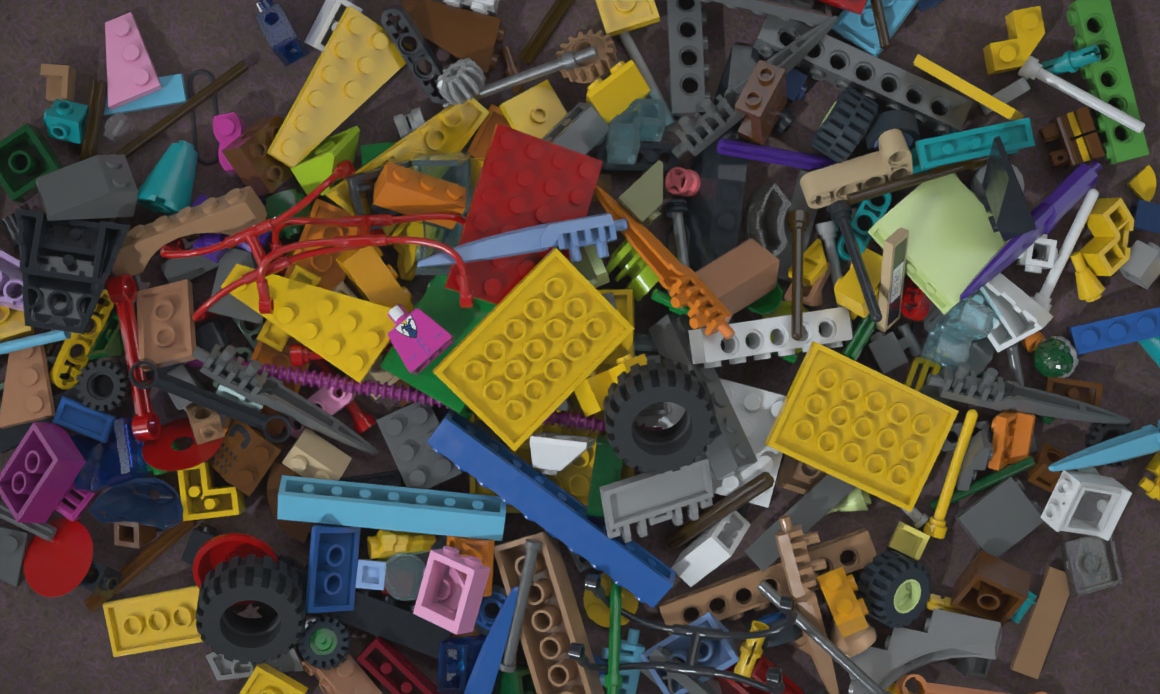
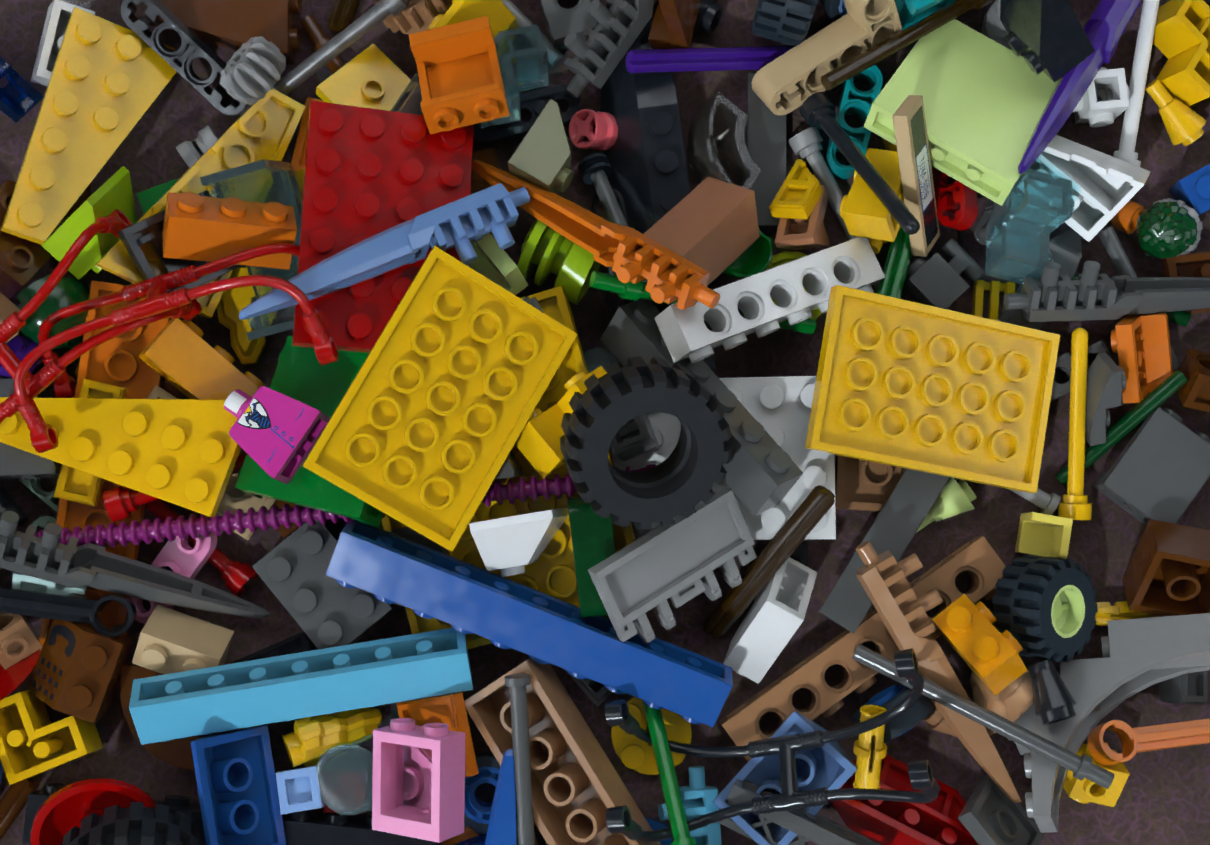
camera: 20 degrees left, 5 degrees down
(602, 130) = (459, 75): none -> orange panel
(798, 222) = (765, 141): dark brown piece -> none
(879, 646) = (1050, 693): none -> black cone

